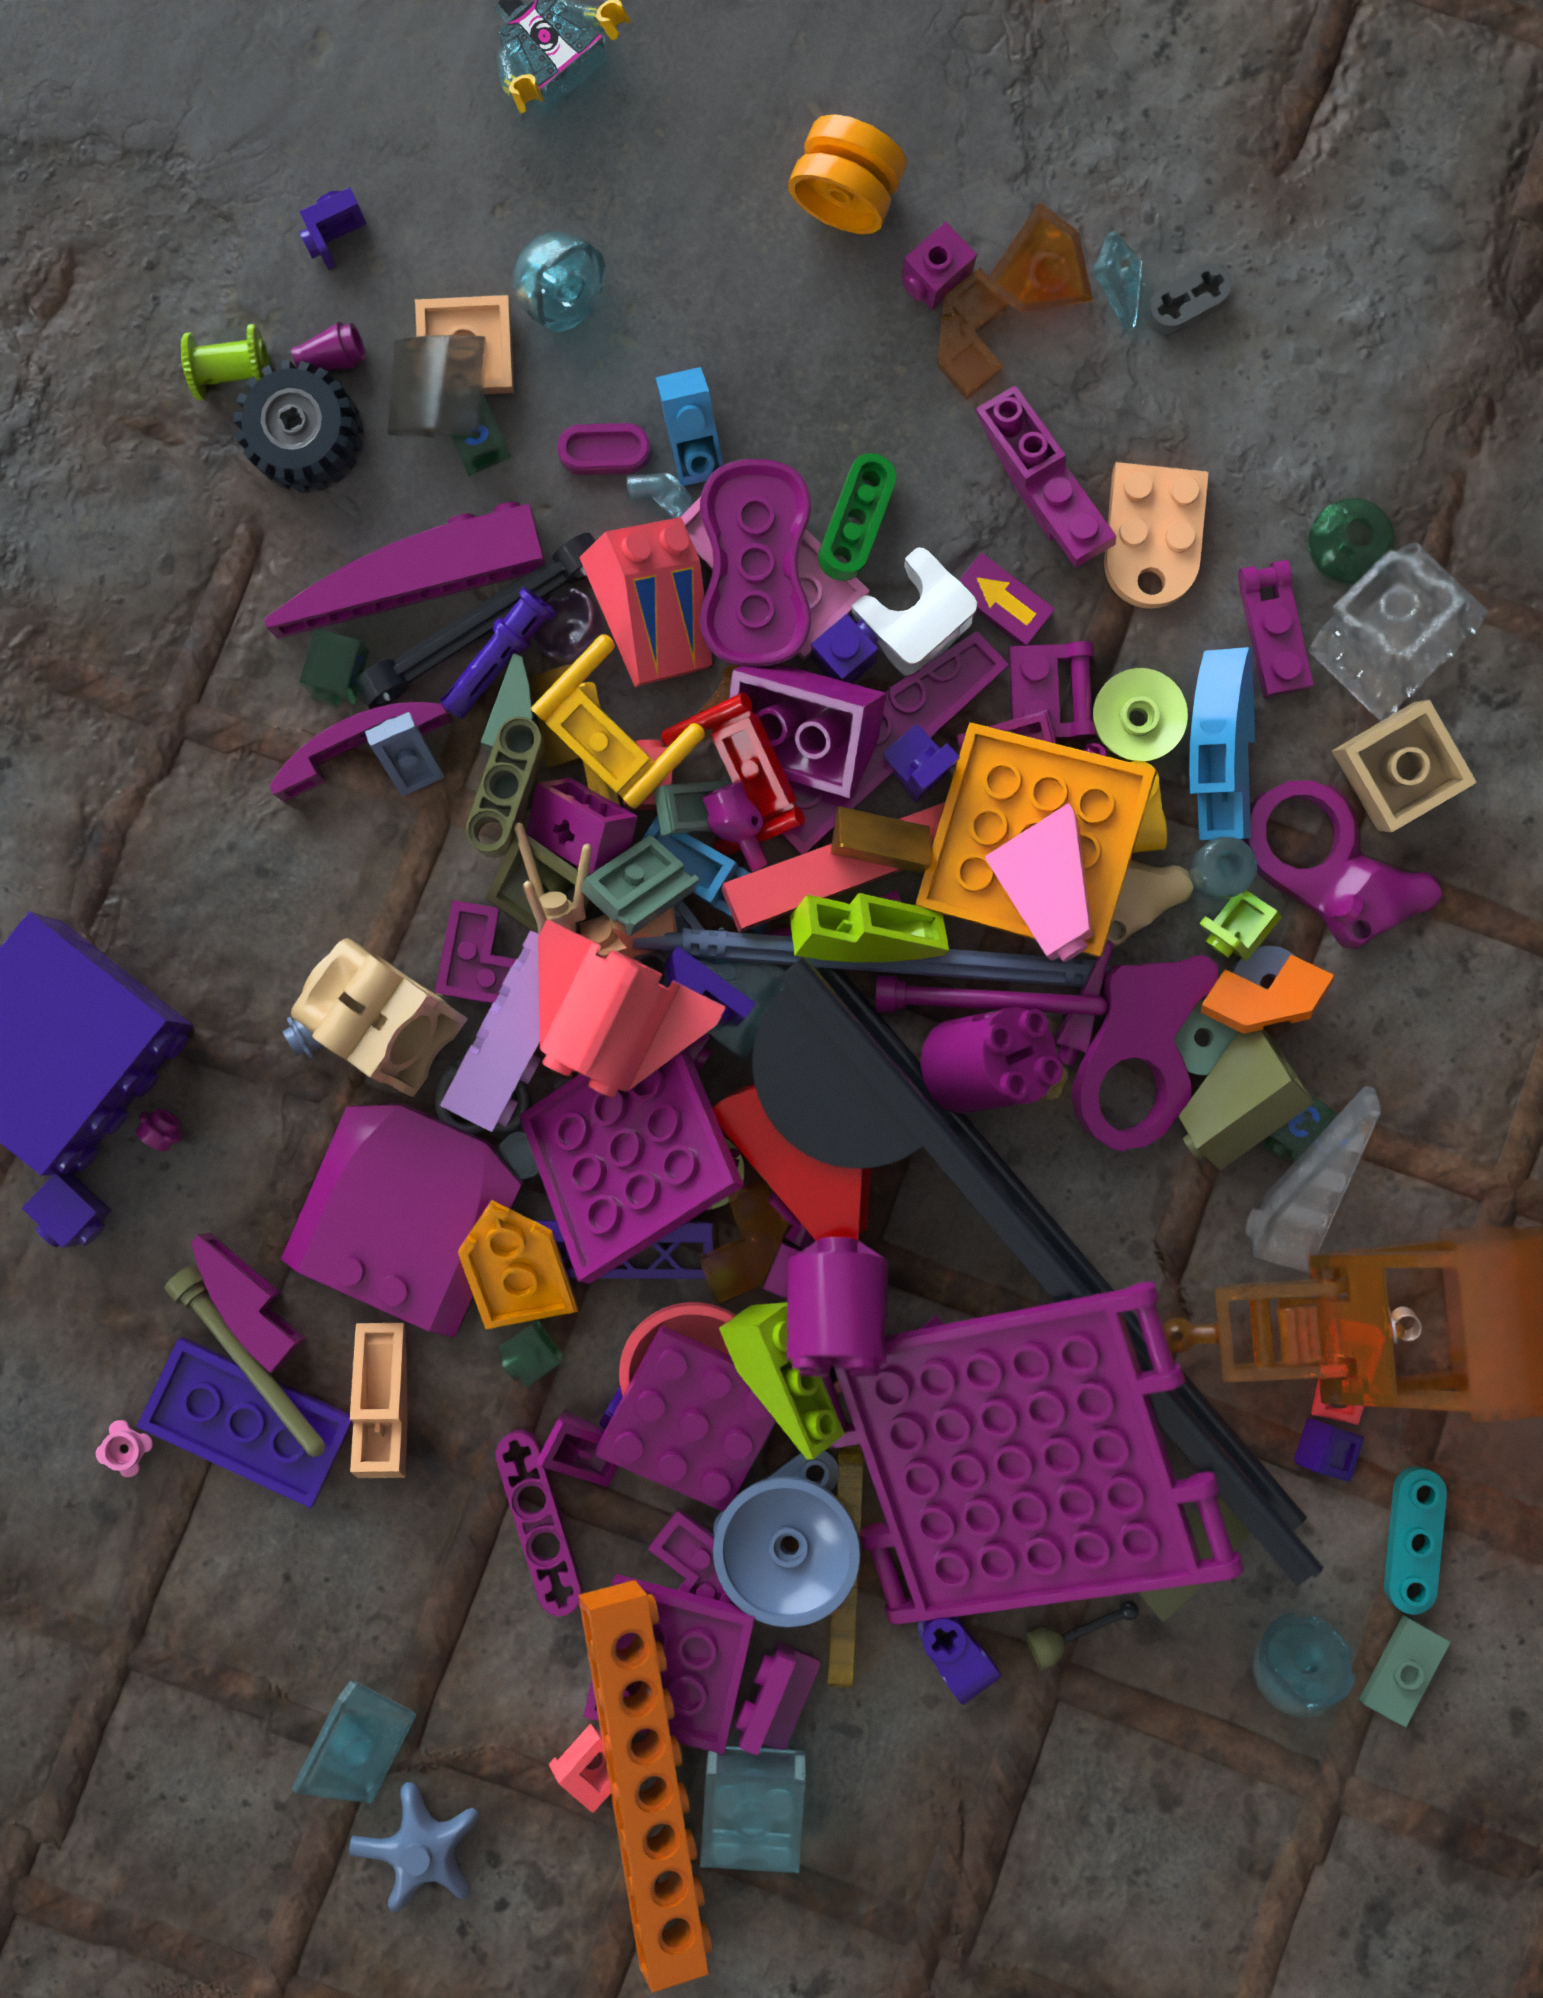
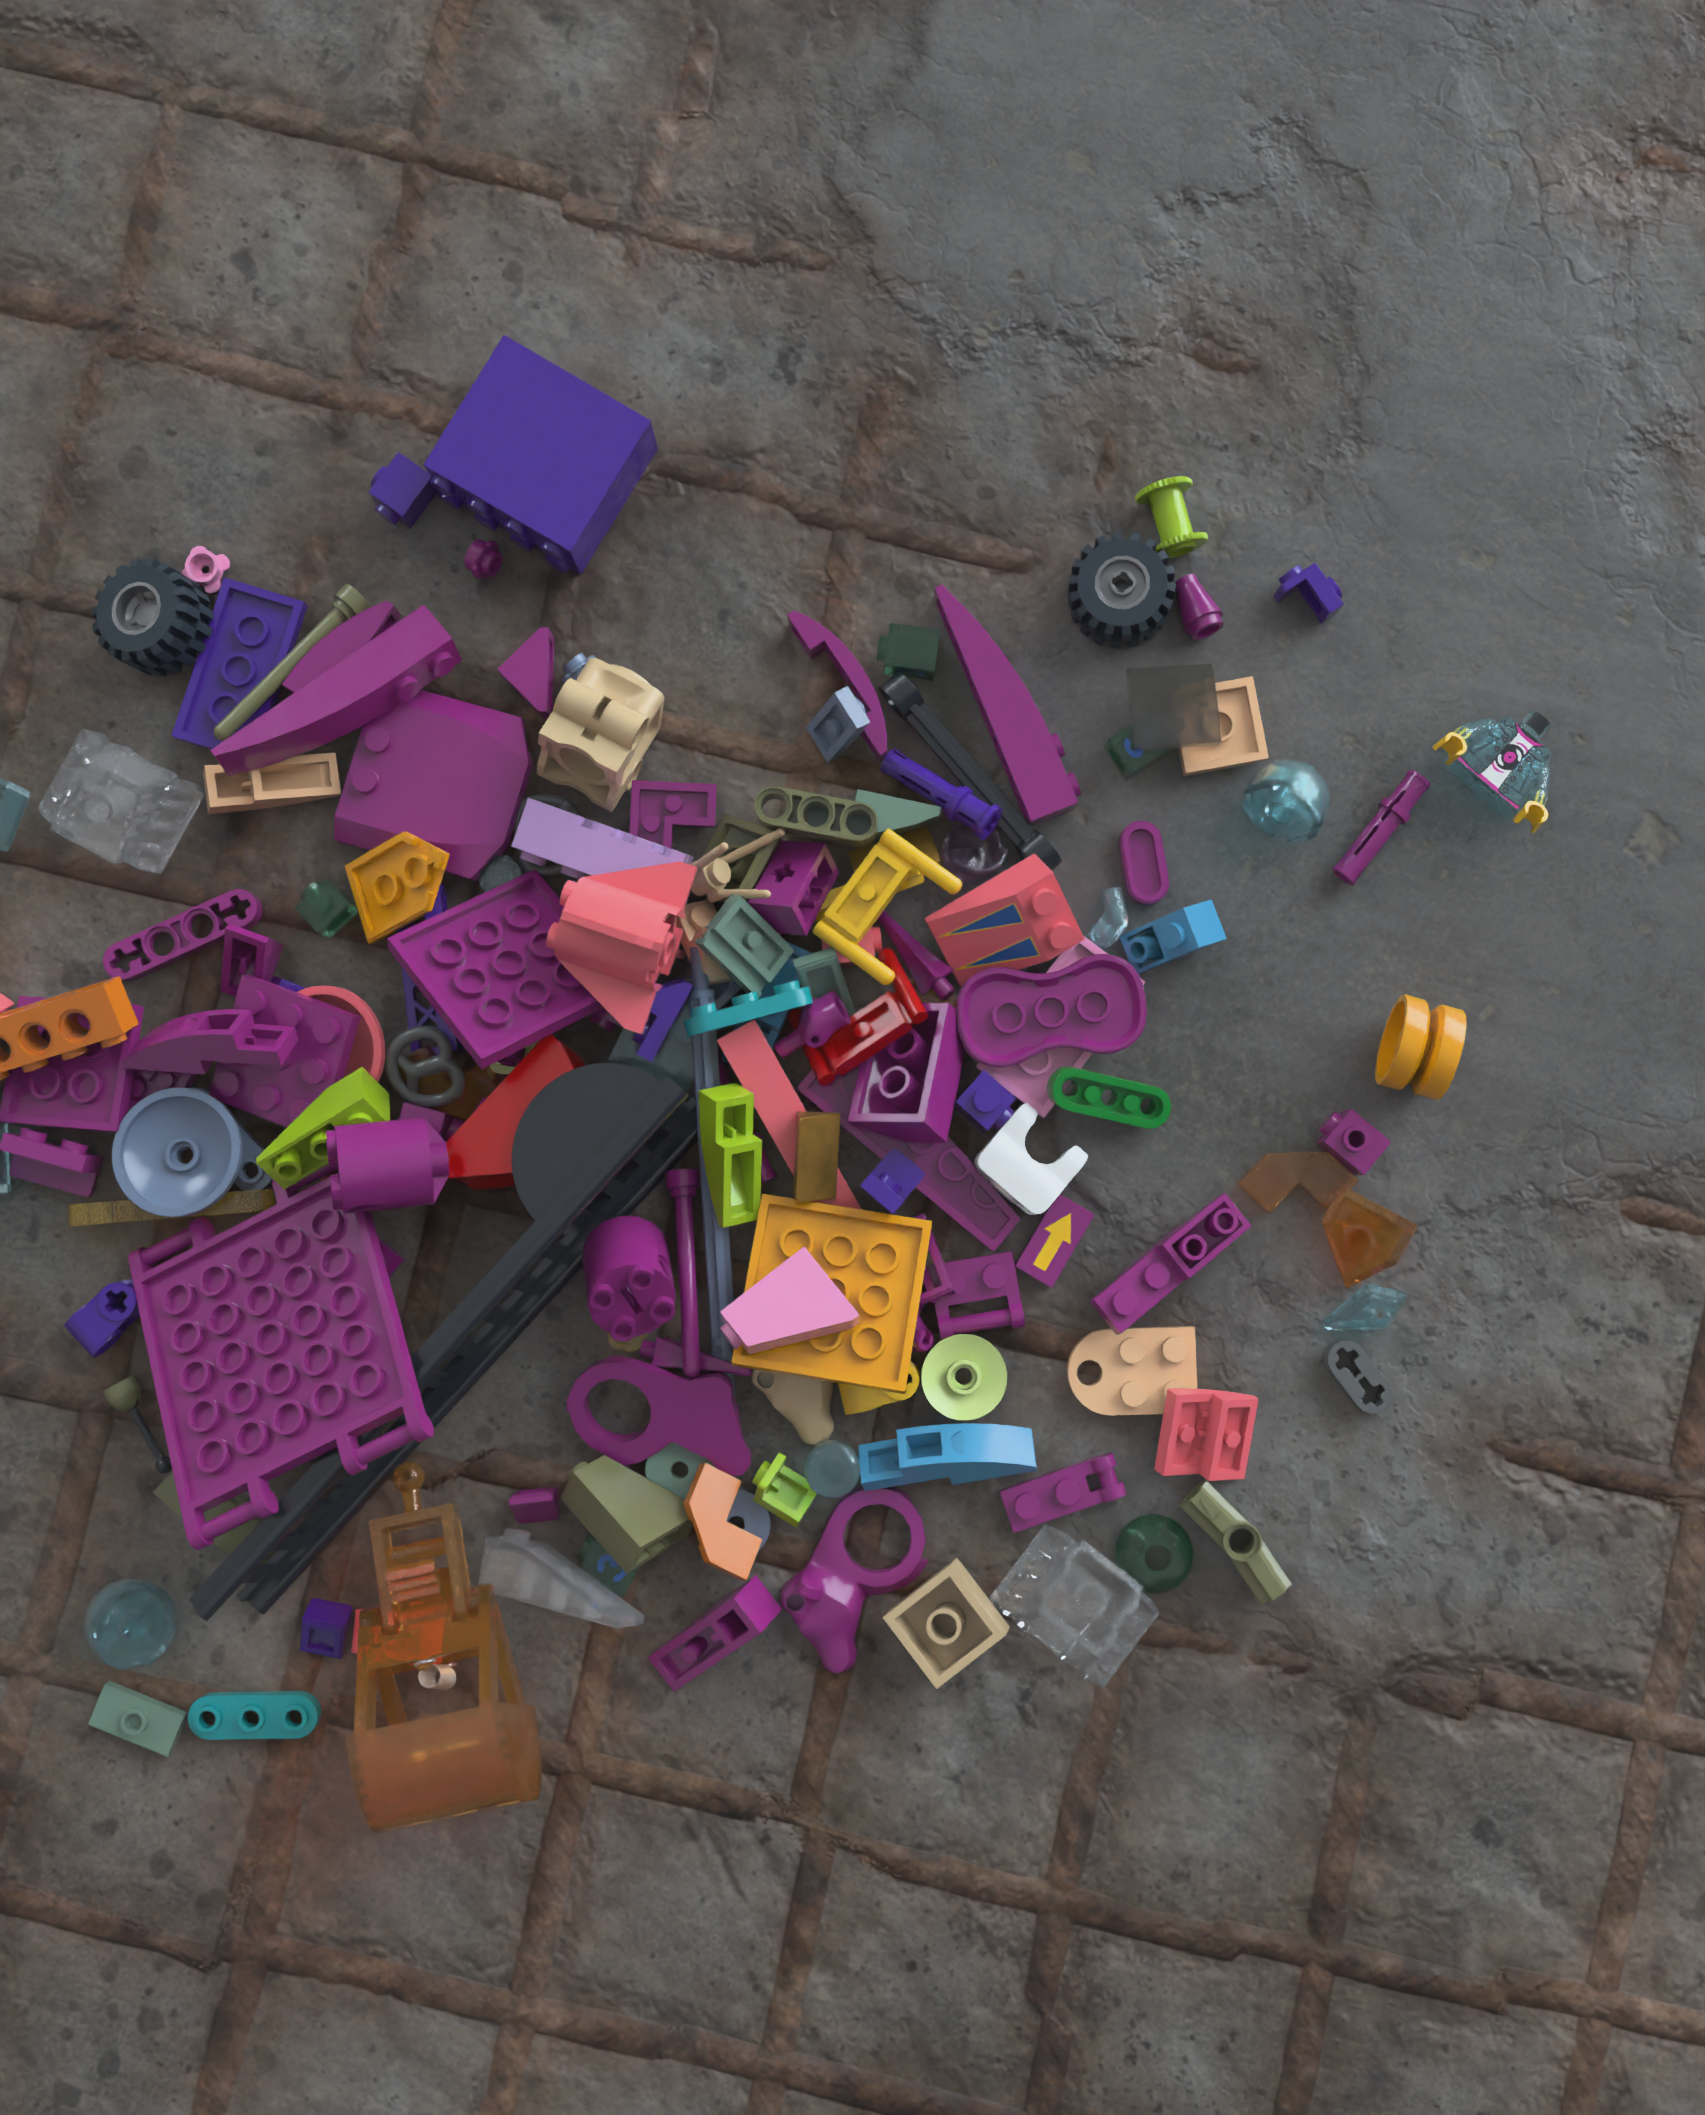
camera: 85 degrees right, 0 degrees up
(170, 1513) = (152, 617): none -> black wheel
(294, 1298) = (346, 695): none -> magenta slope
(297, 1092) = (532, 671): none -> magenta slope
(379, 1577) = (119, 803): none -> clear slope
(586, 174) = (1391, 814): none -> magenta pin
(662, 1507) = (200, 1038): none -> magenta slope
(685, 699) = (924, 966): none -> magenta piece
(711, 889) = (747, 1008): none -> teal plate
(727, 1263) = (443, 1062): none -> dark grey piece
(1221, 1200) = (535, 1505): none -> magenta slope
(1232, 465) = (1206, 1433): none -> coral slope
(1370, 436) = (1253, 1560): none -> olive piece
(1385, 1018) = (716, 1633): none -> magenta slope

